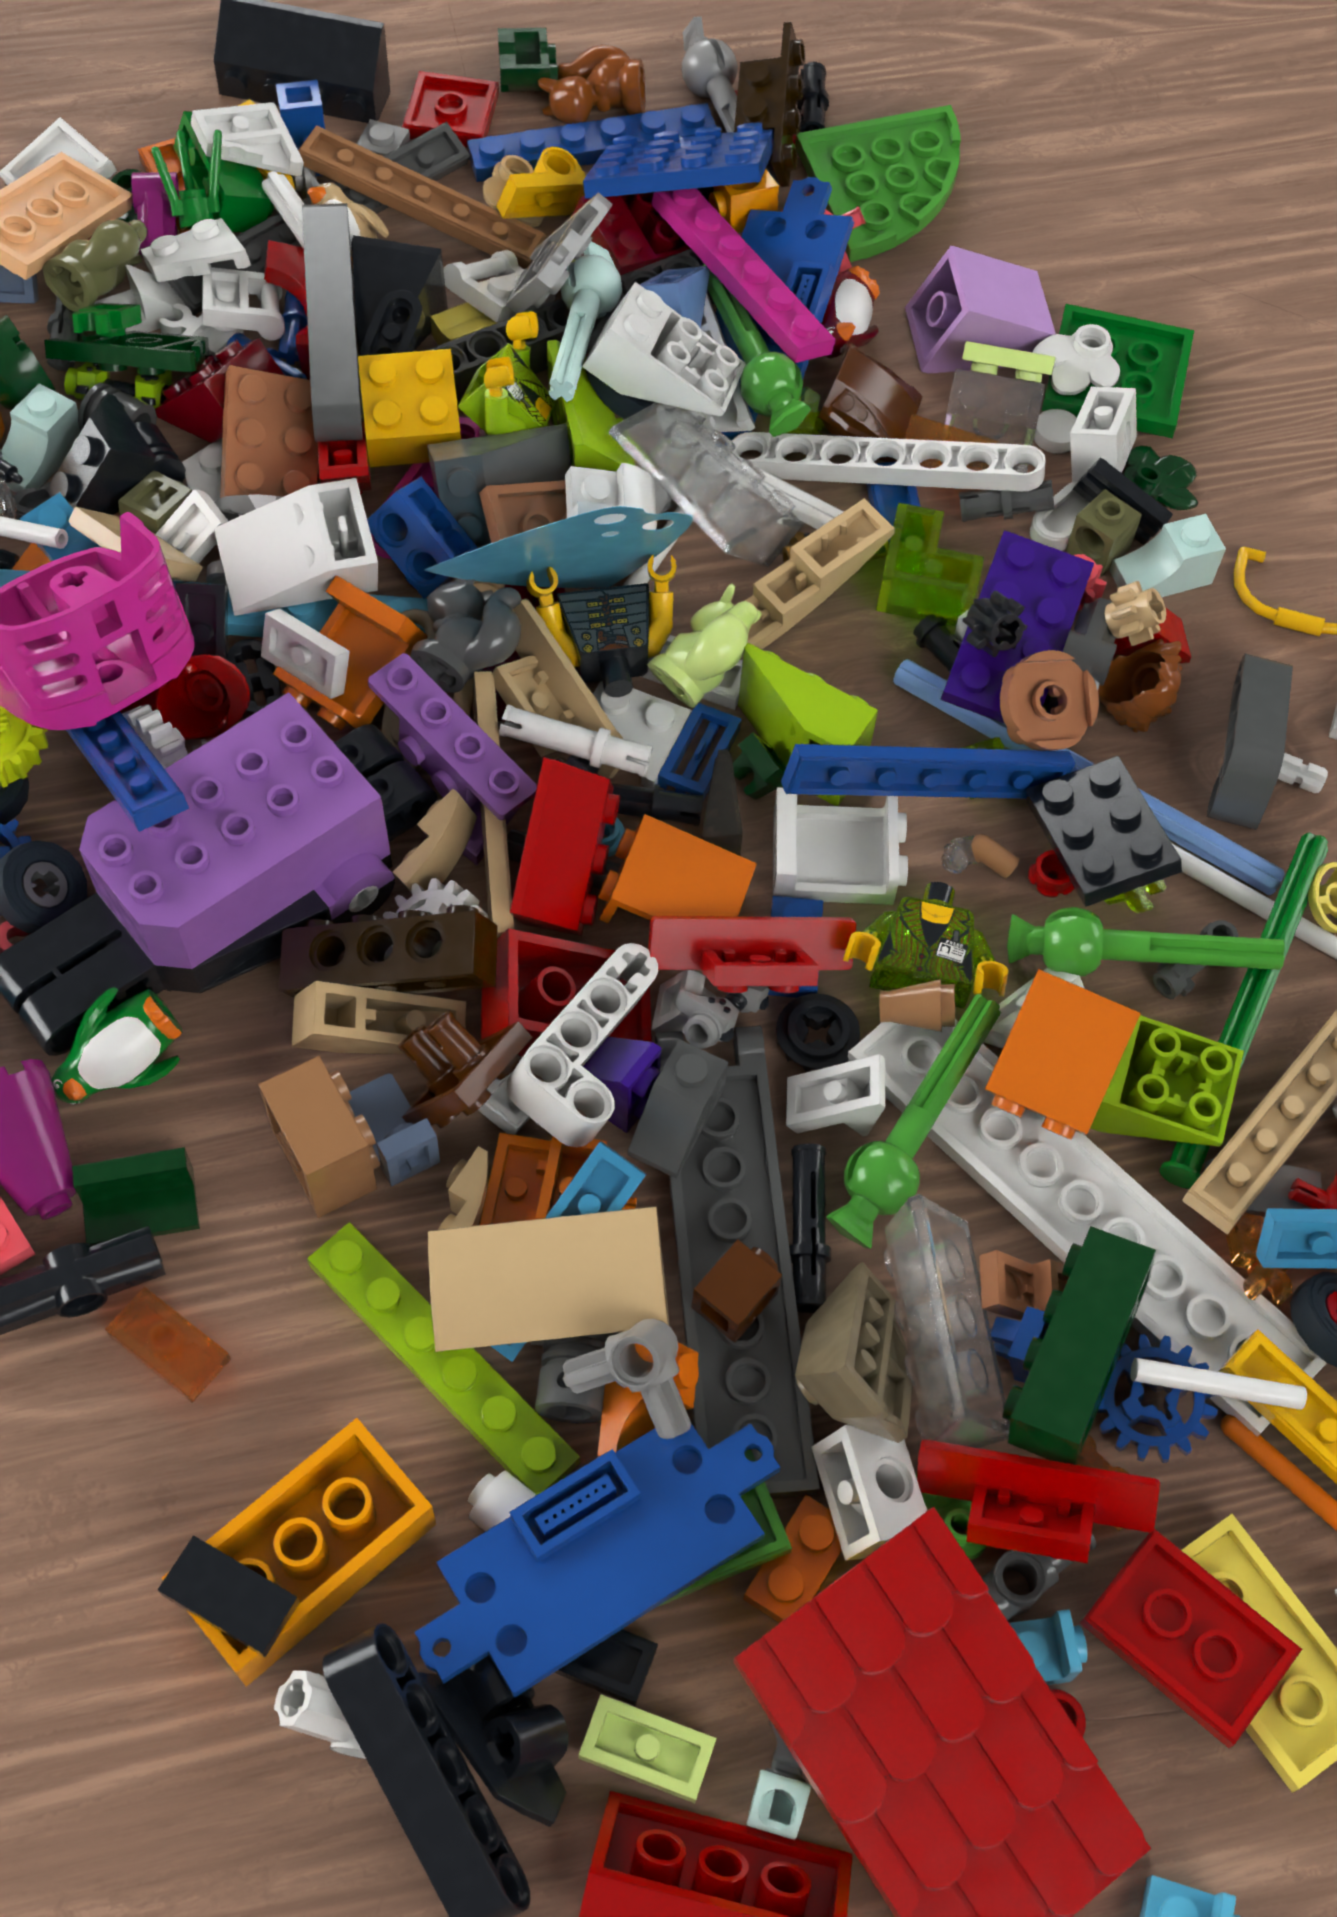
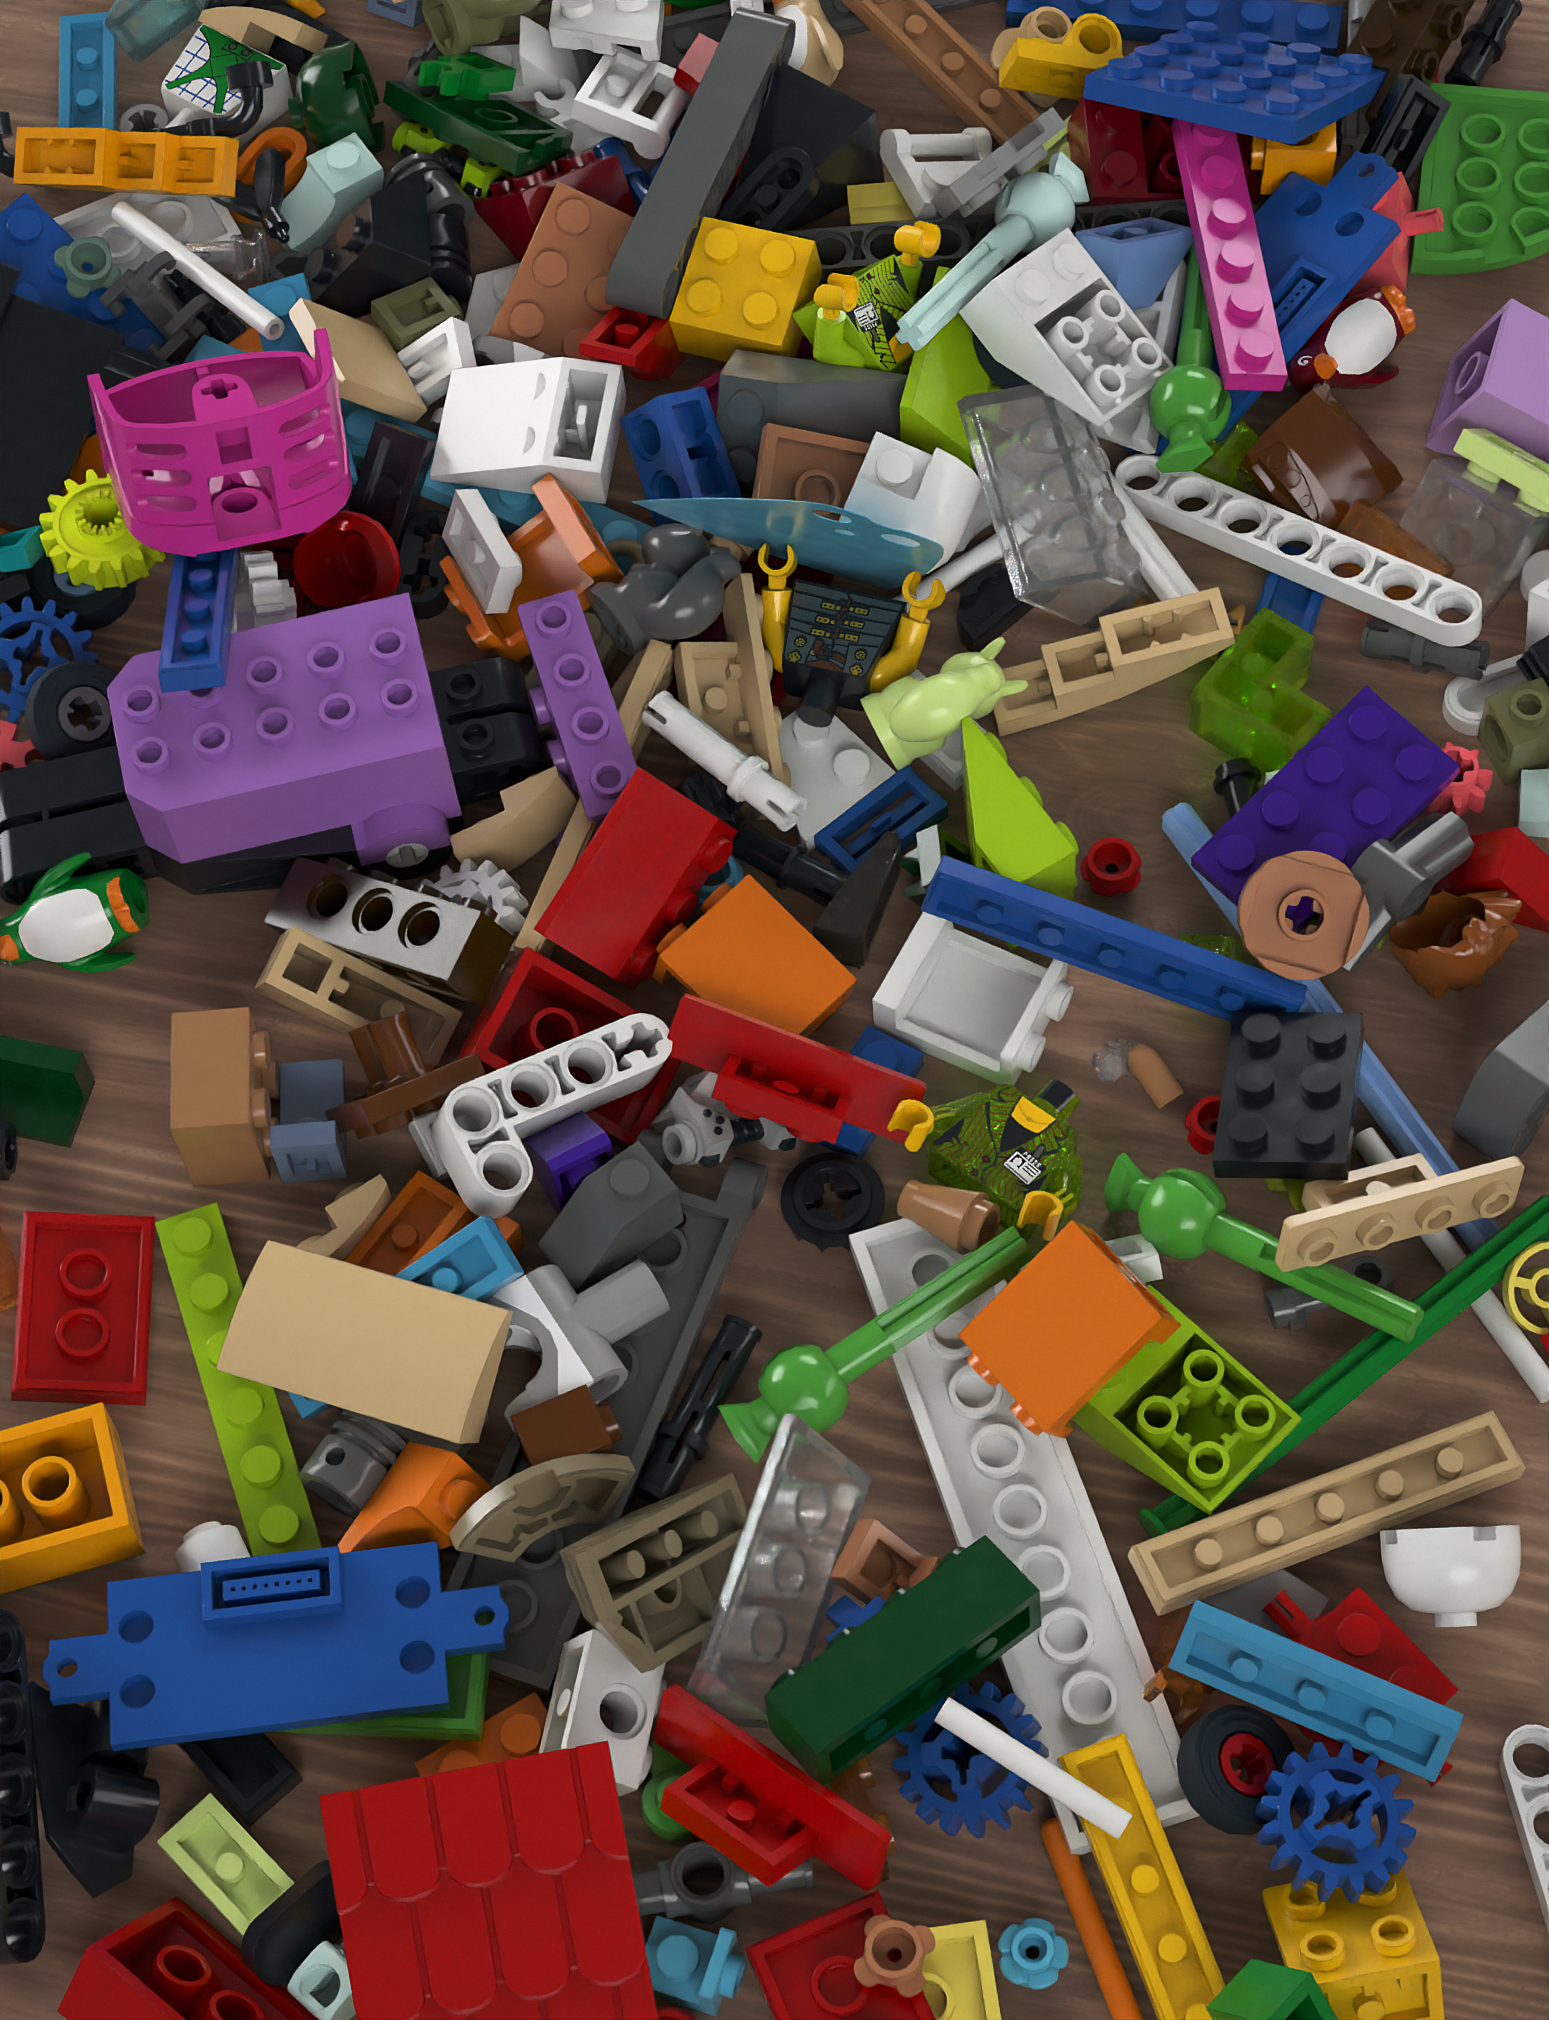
camera: 35 degrees right, 0 degrees up
(284, 1351) = (83, 1308): none -> red tile
(622, 1364) = (403, 1464): light grey axle -> none
(694, 570) = (988, 608): none -> black tile
(698, 1204) = (575, 1330): none -> light grey connector
(731, 1762) = (292, 1927): none -> black tile
(747, 1345) = (541, 1500): none -> dark tan tile
(800, 159) = (1395, 120): none -> black tile
(836, 1095) = (806, 1279): white slope -> none
(889, 717) = (1111, 853): none -> red plate
(994, 623) = (1292, 793): black gear -> none
(1135, 613) = (1475, 846): tan gear -> none
(1210, 1556) = (888, 1935): none -> nougat plate
(1216, 877) = (1391, 1205): none -> tan bracket
(1266, 1537) = (1037, 1972): none -> medium azure plate

